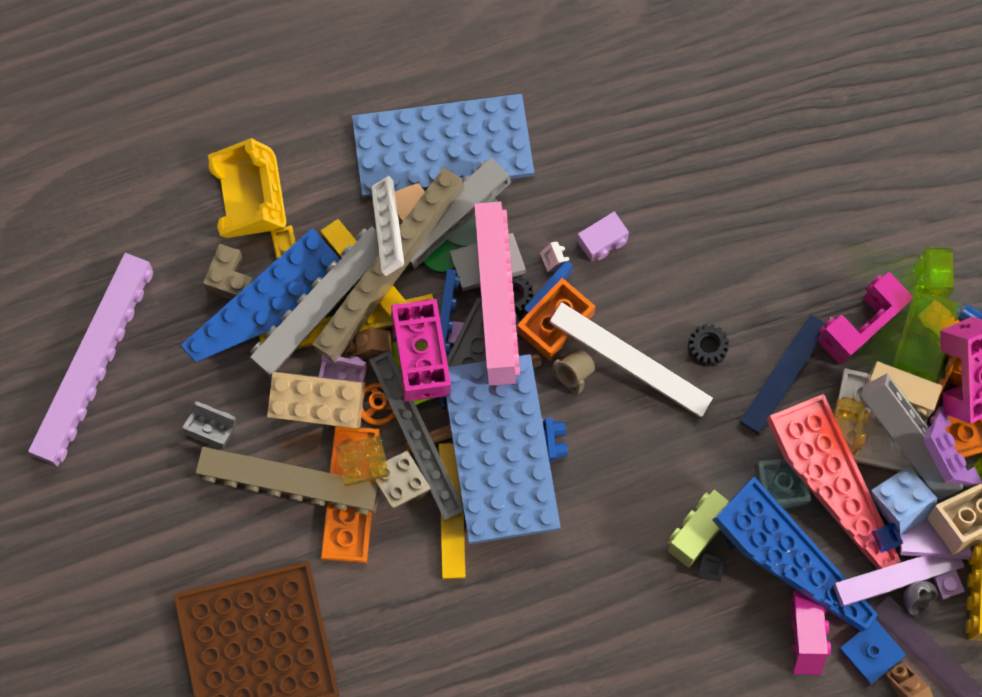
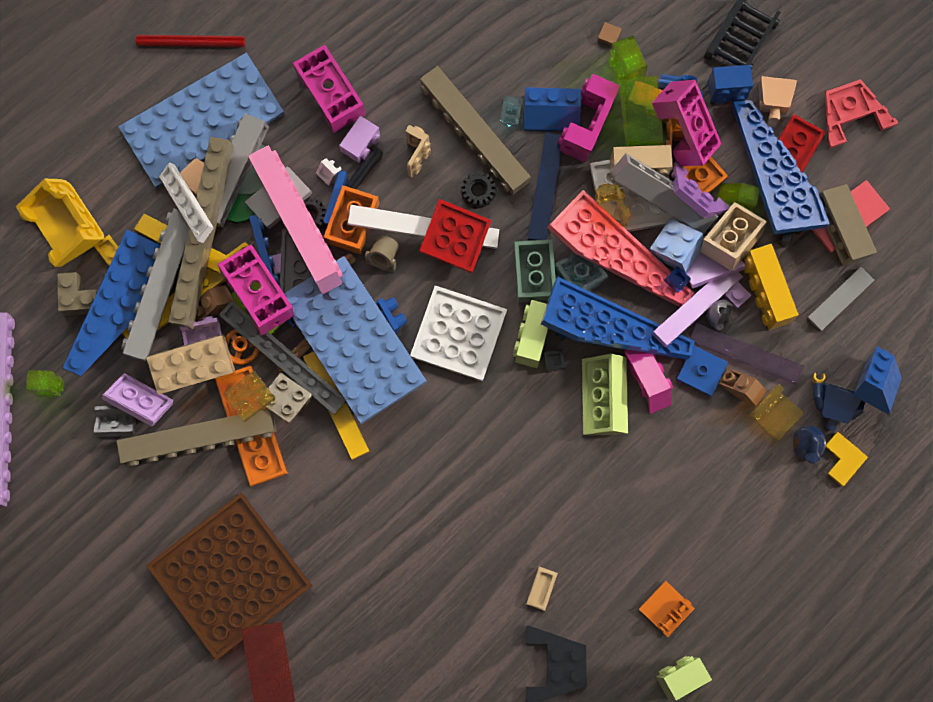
camera: 25 degrees left, 5 degrees up
(154, 353) = (44, 383): none -> clear neon green brick
(243, 413) = (137, 399): none -> lavender tile
(468, 57) = (190, 41): none -> red axle
(594, 270) = (365, 168): none -> black axle
(595, 189) = (340, 103): none -> dark pink plate
(618, 492) = (458, 333): none -> white plate
(660, 384) = (455, 236): none -> red plate
(667, 264) = (418, 139): none -> tan bracket
(732, 280) = (474, 130): none -> dark tan brick
(732, 458) = (534, 270): none -> sand green brick
(751, 630) = (604, 395): none -> yellowish green slope
(783, 268) = (512, 105): none -> clear light blue brick
(827, 290) = (551, 108): none -> blue slope
(928, 236) = (609, 34): none -> medium nougat tile

